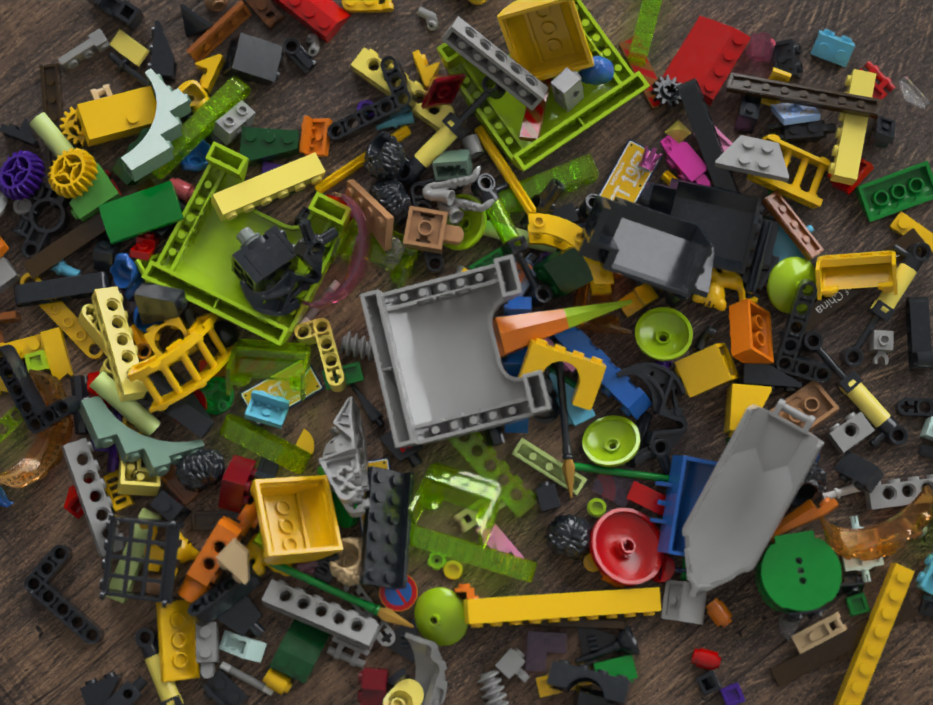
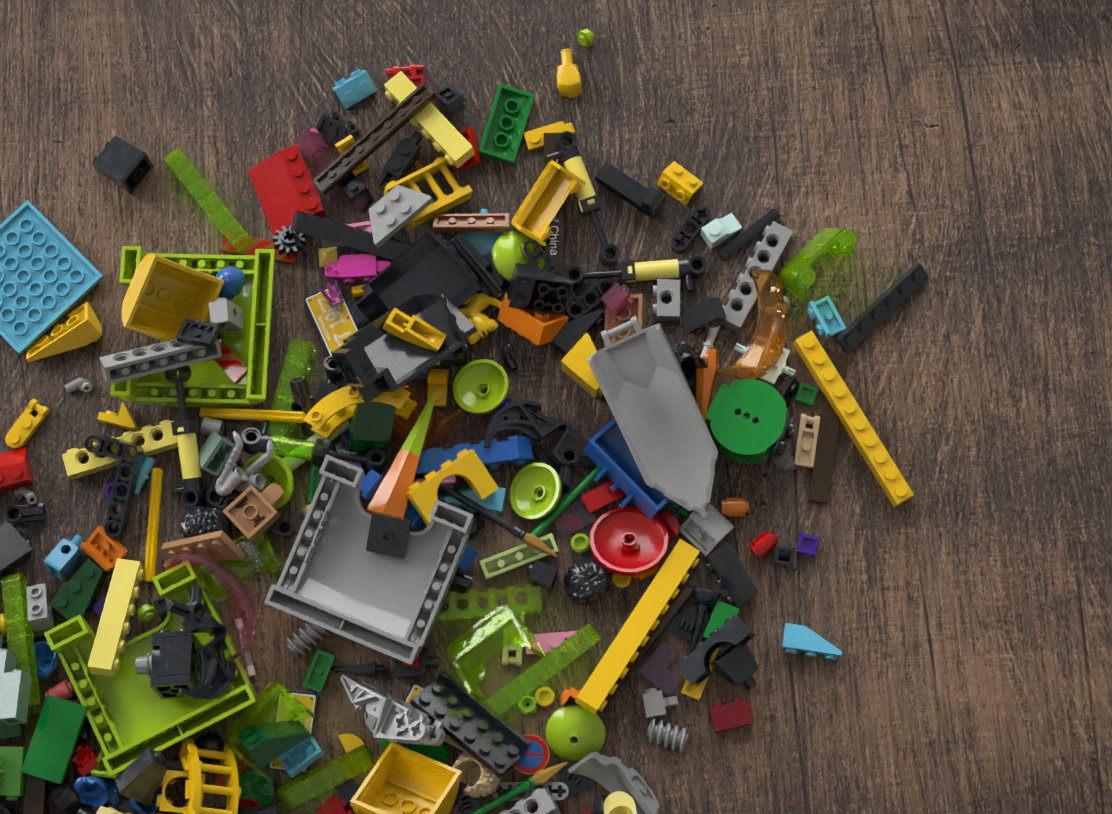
camera: 50 degrees left, 5 degrees down
(261, 381) = (272, 740): none -> dark green slope
(280, 113) = (64, 557): none -> dark azure torso
(289, 207) = (146, 613): none -> lime plate
(327, 355) = (292, 670): light yellow beam -> none
(384, 157) = (166, 503): black hair -> none
(442, 90) = (147, 416): dark red slope -> none
(486, 351) = (388, 535): none -> black plate
(536, 79) = (199, 333): none -> black bracket
(659, 651) = (731, 576): none -> black slope
(667, 247) = (414, 330): none -> yellow slope
(706, 369) = (535, 374): yellow slope -> none
(777, 321) = (538, 290): none -> black slope
(794, 113) = (384, 155): light blue plate -> none
(819, 391) = (617, 298): none -> clear pink brick
(881, 343) = (616, 224): light grey brick -> none
(912, 93) = (437, 56): clear plate -> none

